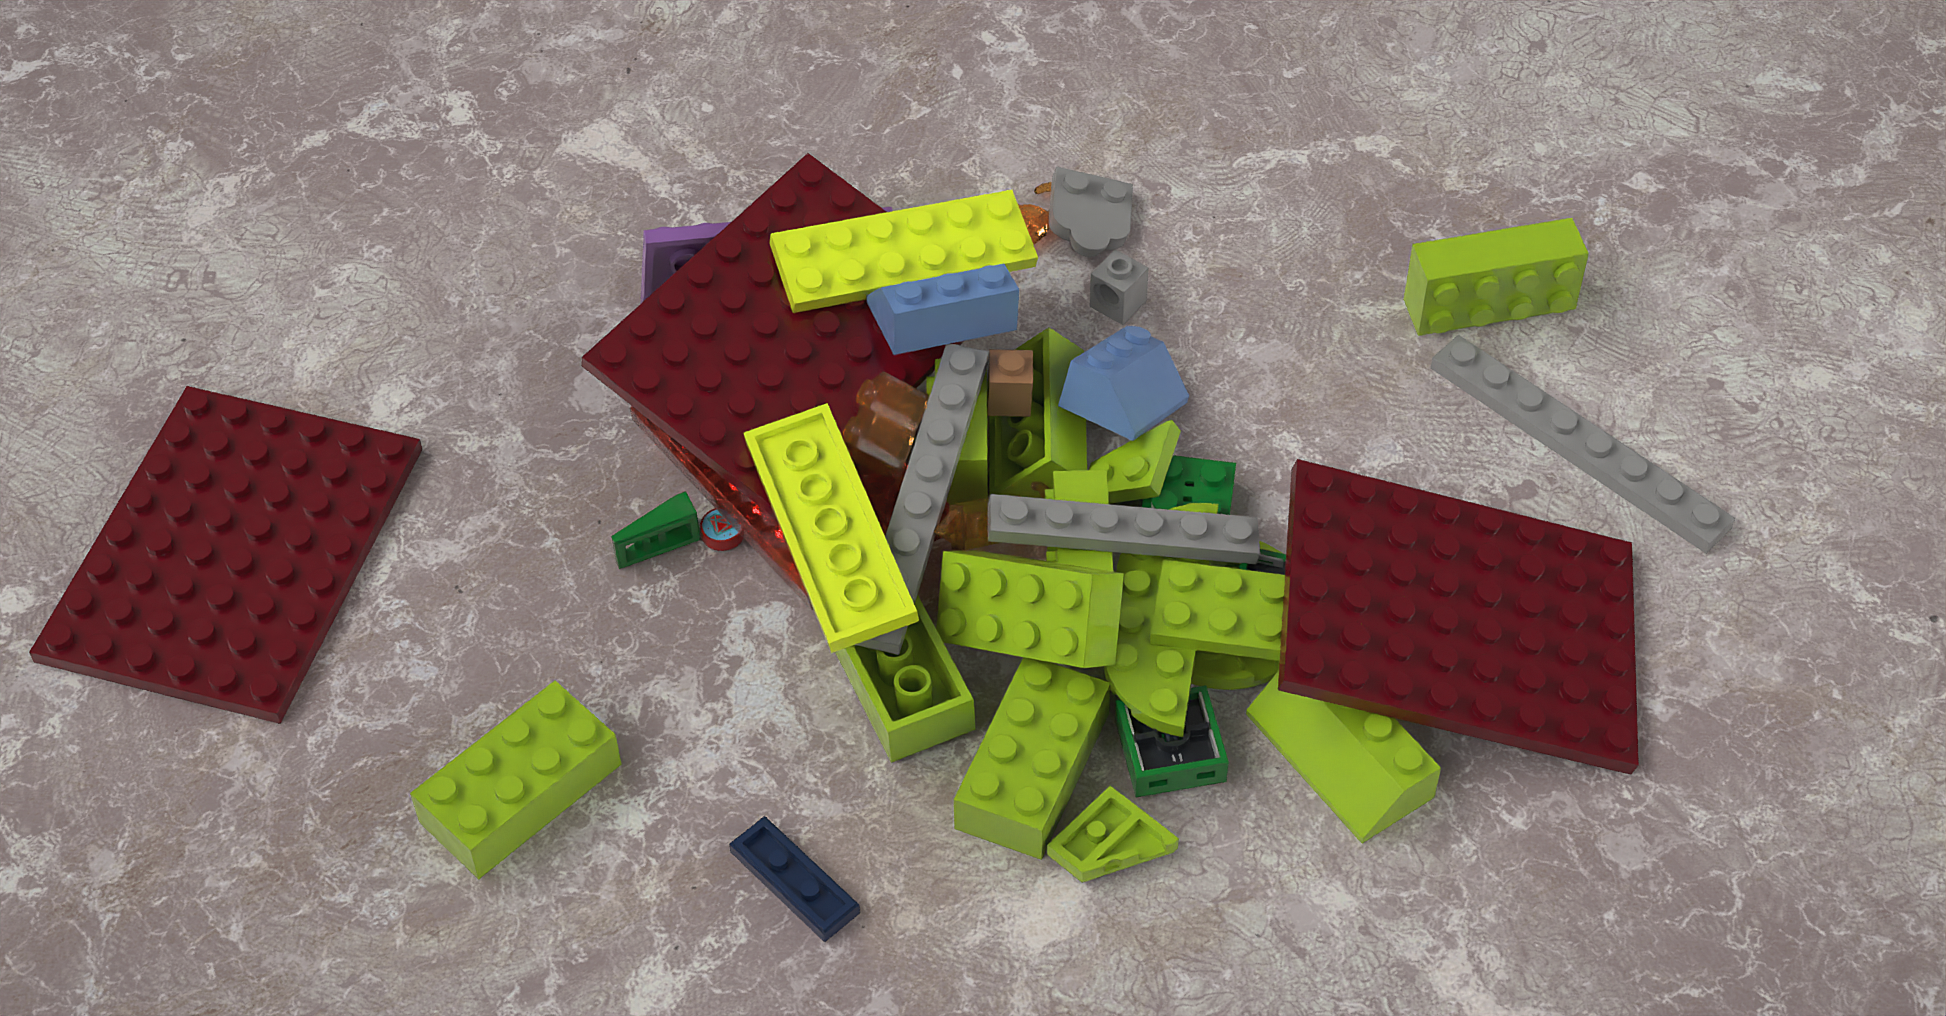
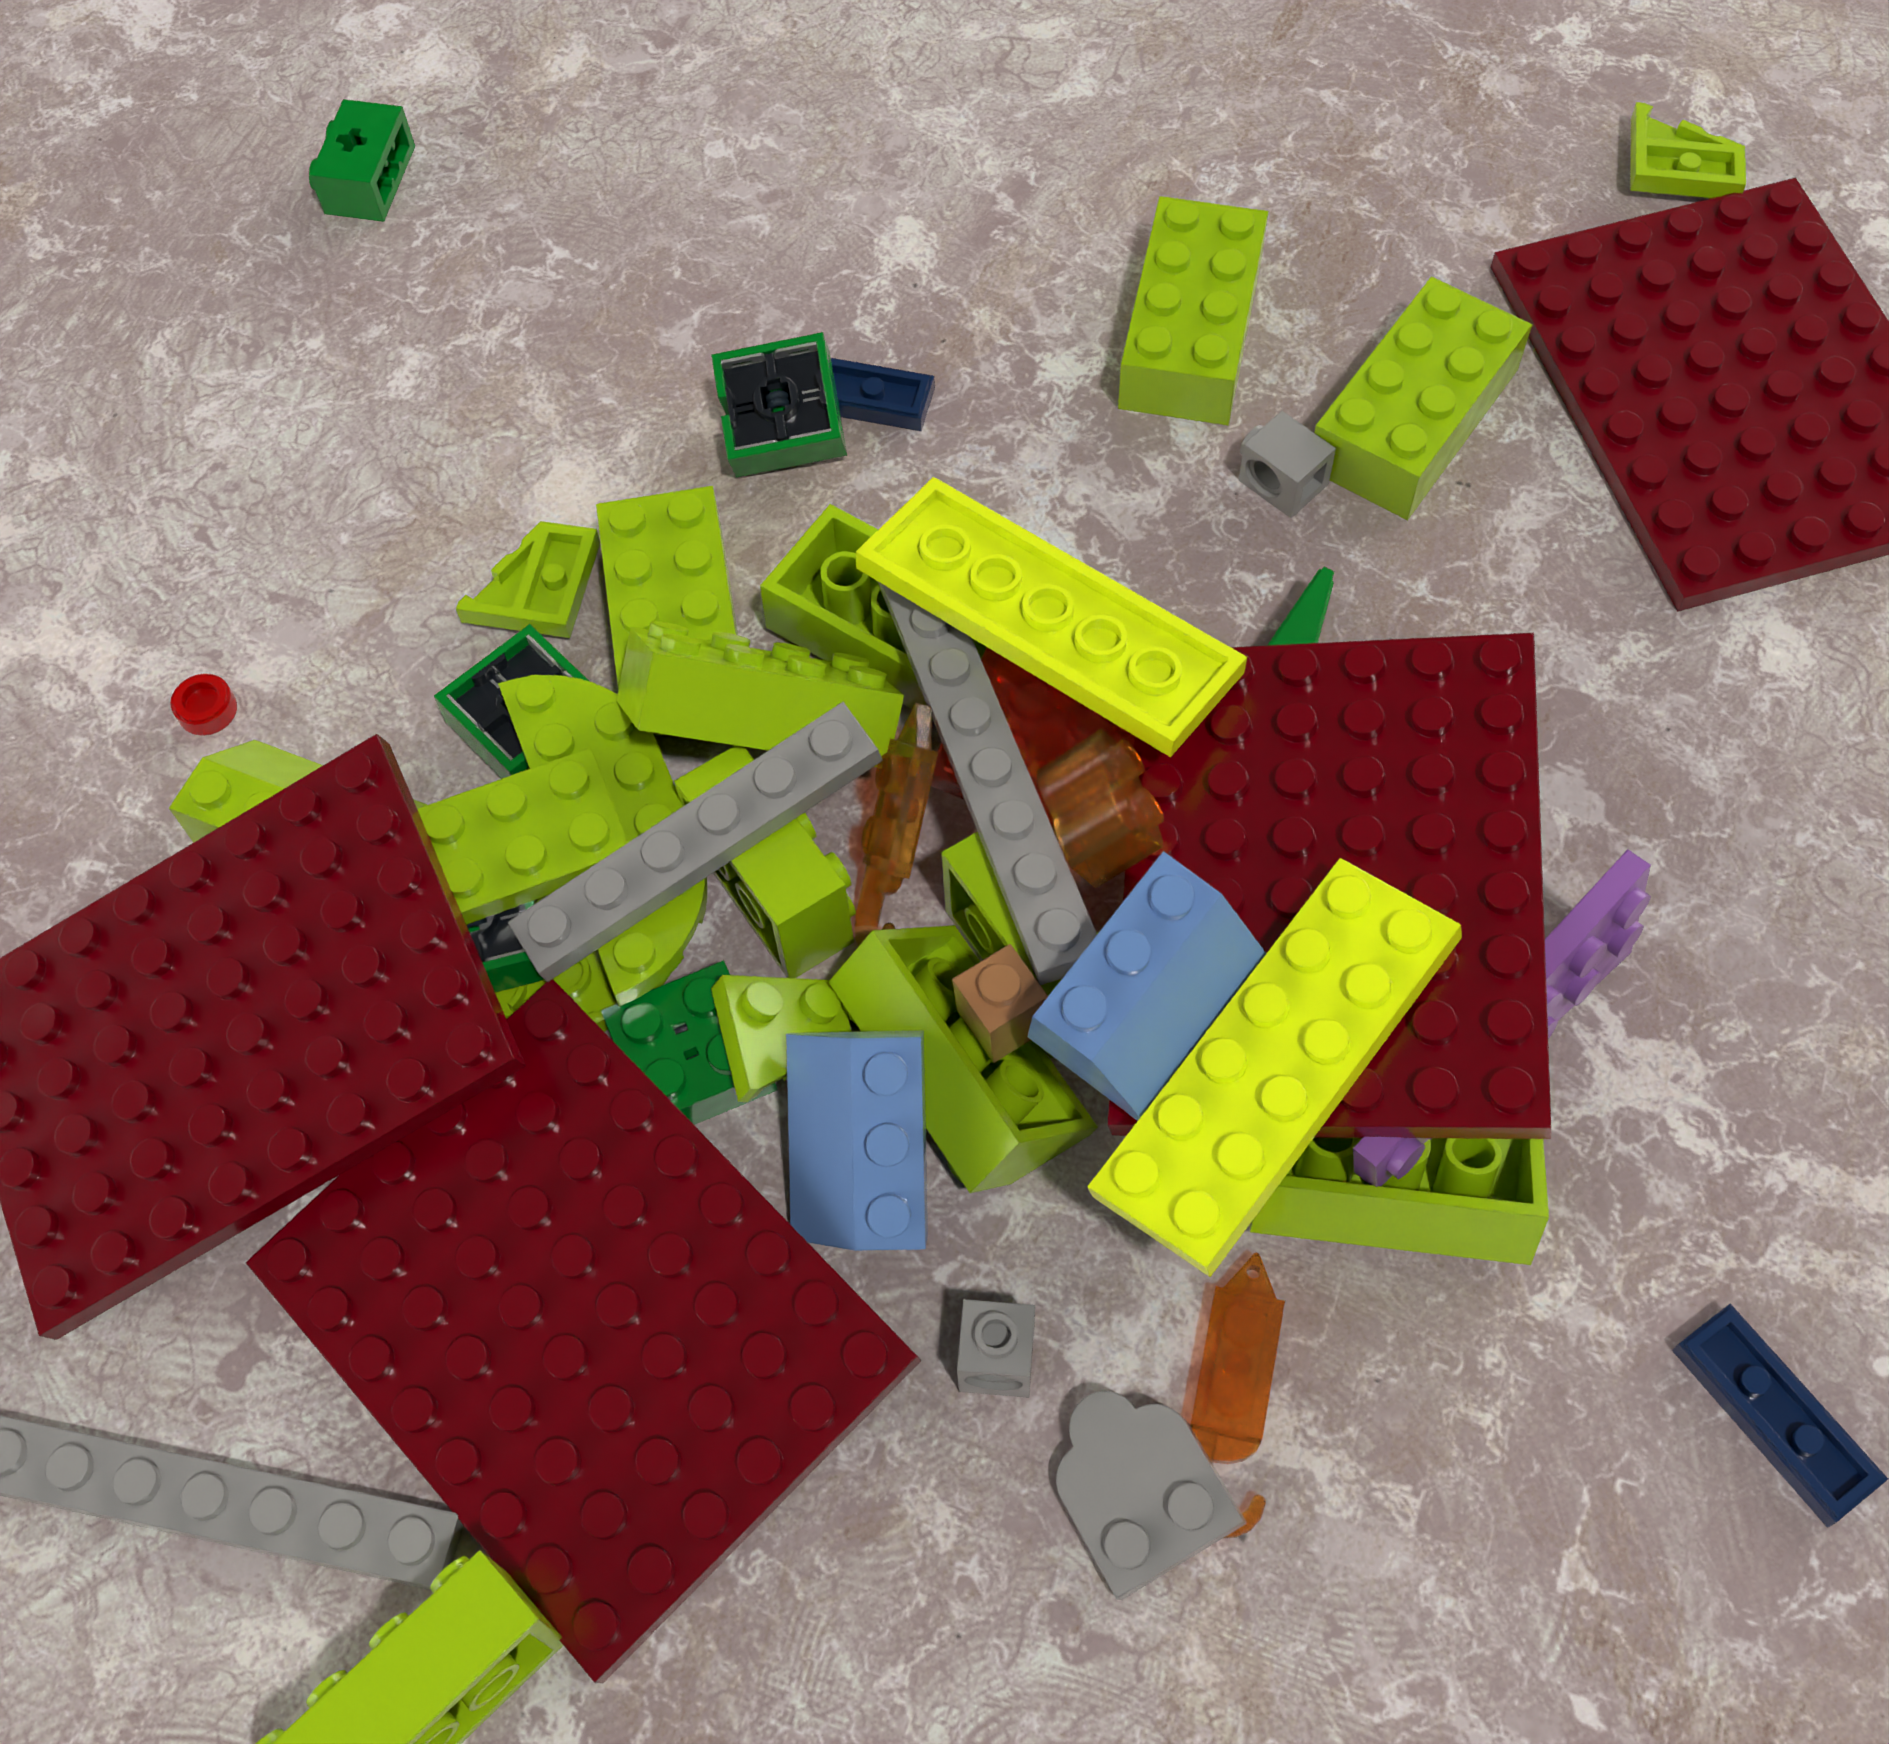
camera: 150 degrees right, 10 degrees up
(79, 711) = (1683, 159): none -> lime wing
(438, 632) = (1421, 395): none -> lime brick
(562, 640) = (1285, 463): none -> light grey brick
(774, 111) = (1780, 1415): none -> dark blue tile
(860, 856) = (779, 405): none -> piece
(1321, 375) = (584, 1331): none -> dark red plate
(1388, 885) = (203, 704): none -> red tile

